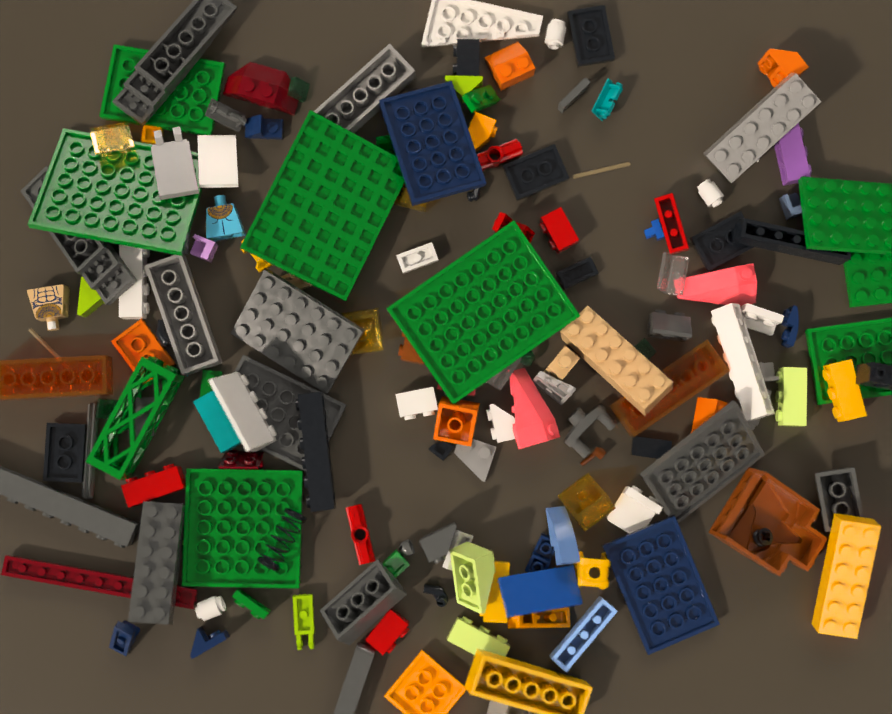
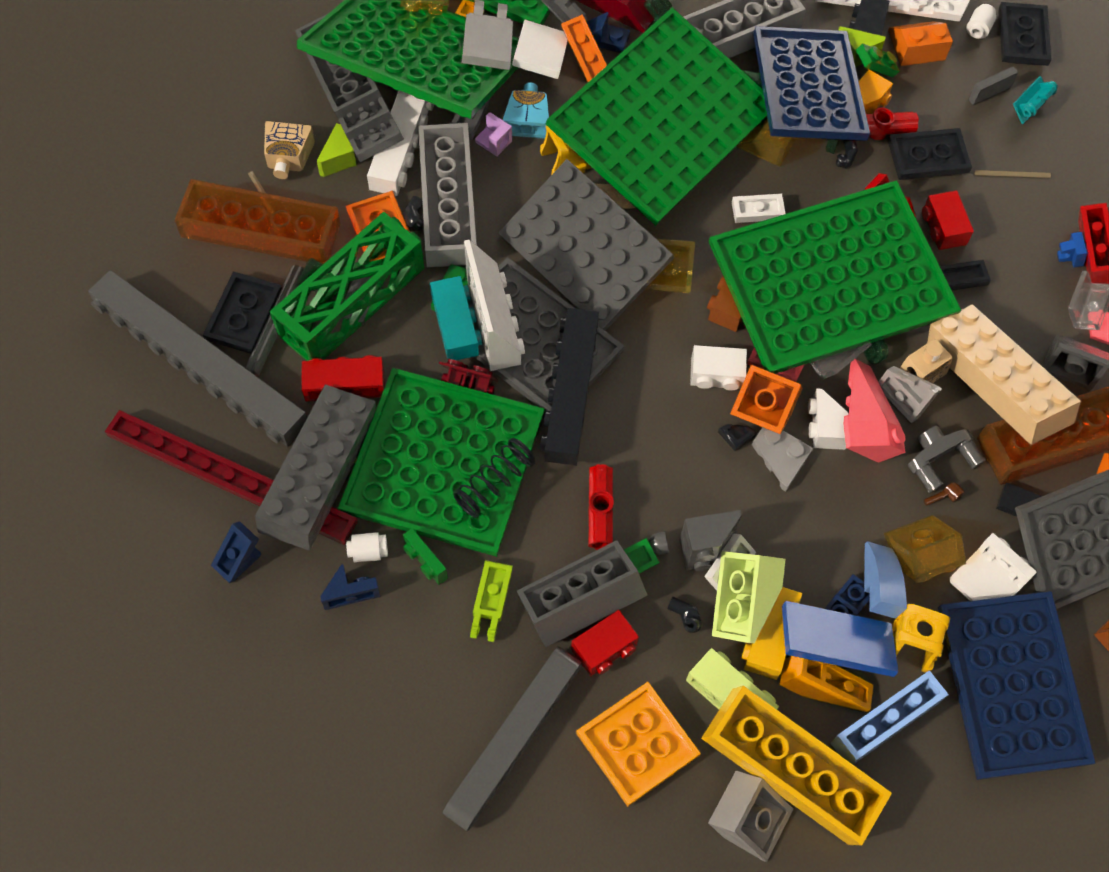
camera: 15 degrees right, 20 degrees down
(254, 154) = (584, 46): none -> orange plate

